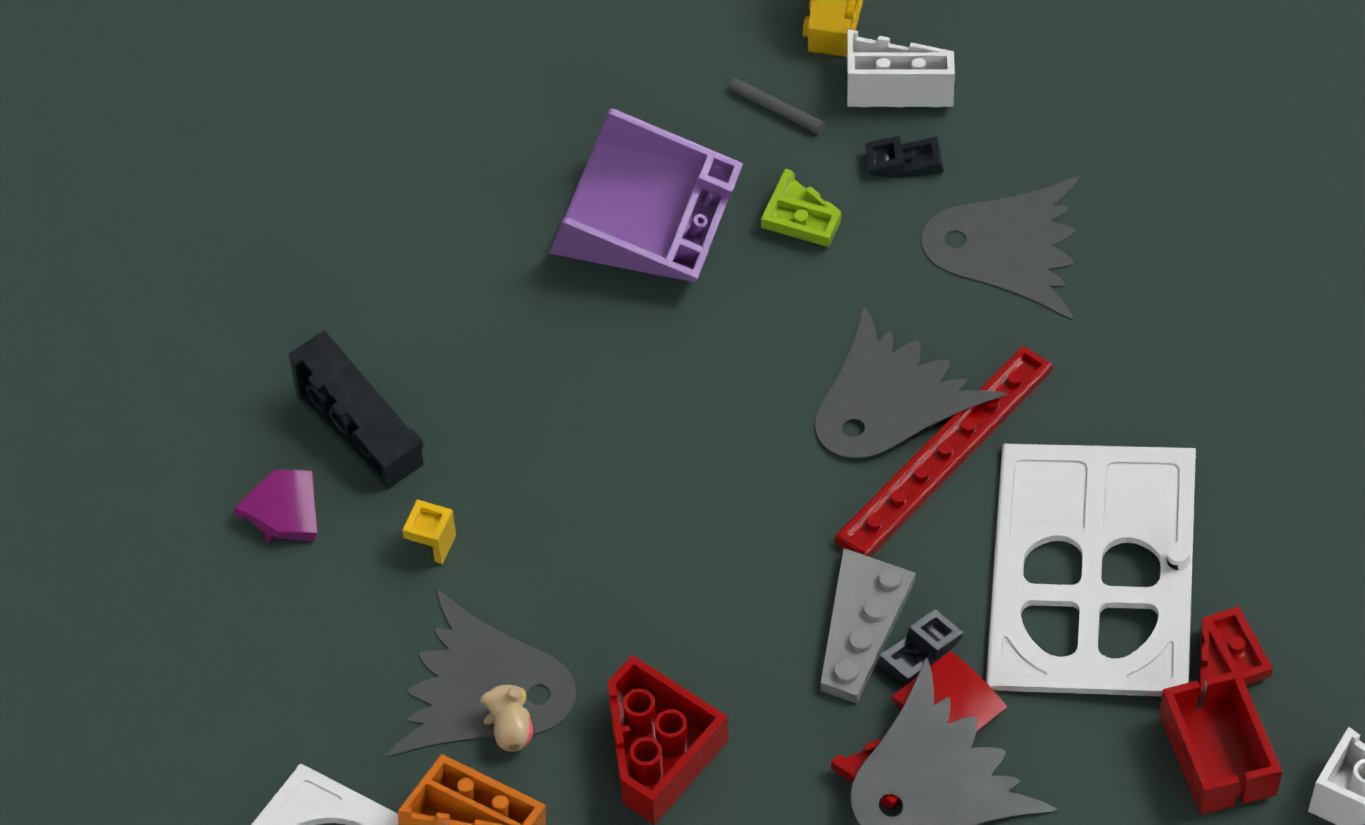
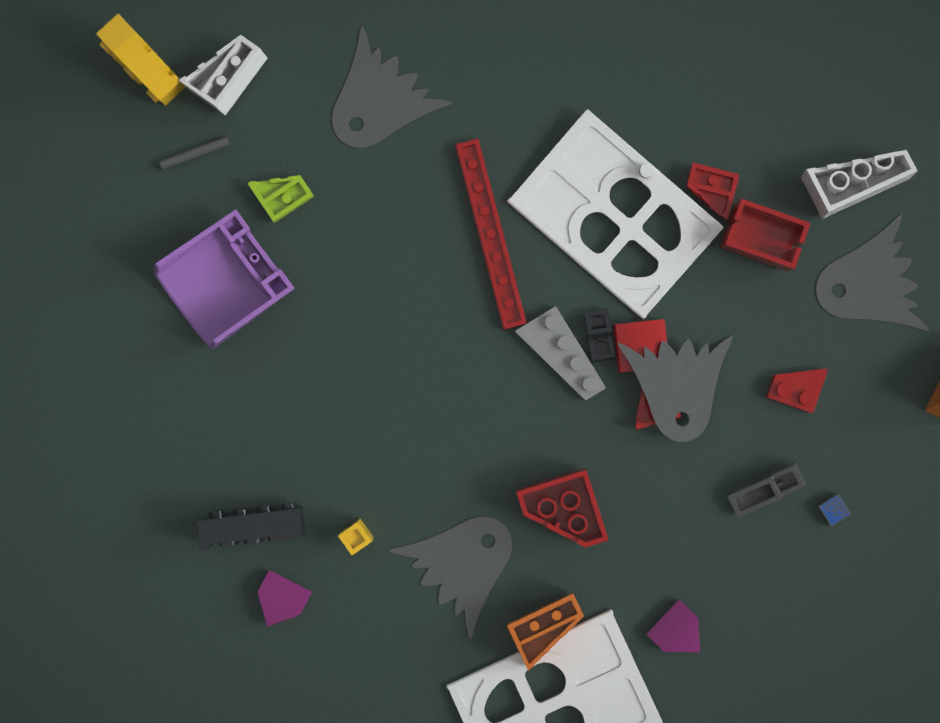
camera: 60 degrees left, 35 degrees up
(511, 721) = (502, 570): tan animal -> none
(888, 395) = (434, 236): dark grey piece -> none
(893, 159) = (283, 111): black slope -> none

